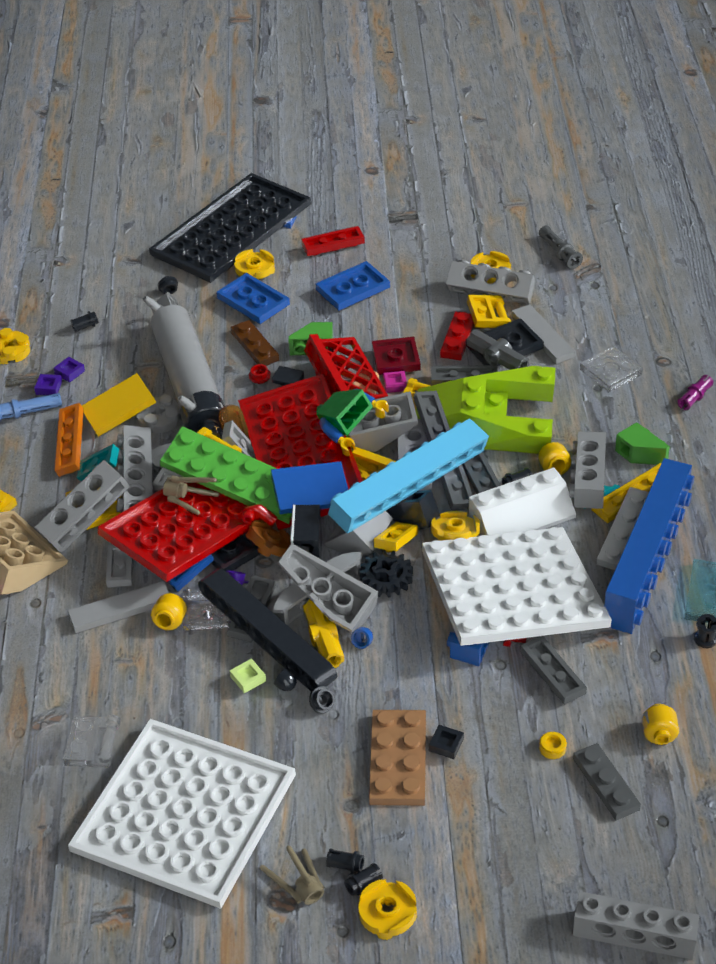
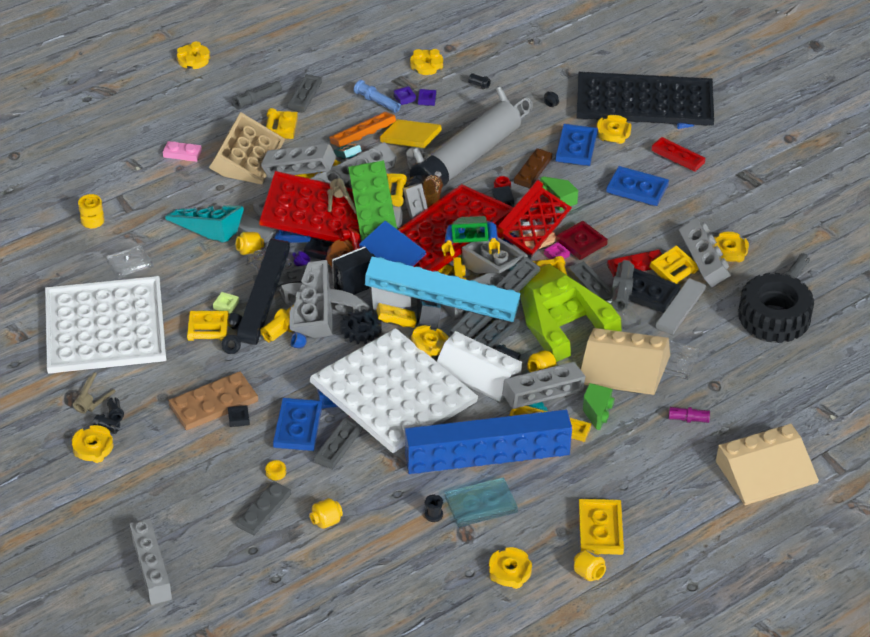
camera: 55 degrees right, 0 degrees up
(102, 629) = (209, 222): none -> teal wedge
(265, 703) = (207, 321): none -> yellow plate
(498, 693) = (298, 424): none -> blue plate
(600, 397) = (625, 360): none -> tan slope
(605, 272) = (773, 323): none -> black tyre

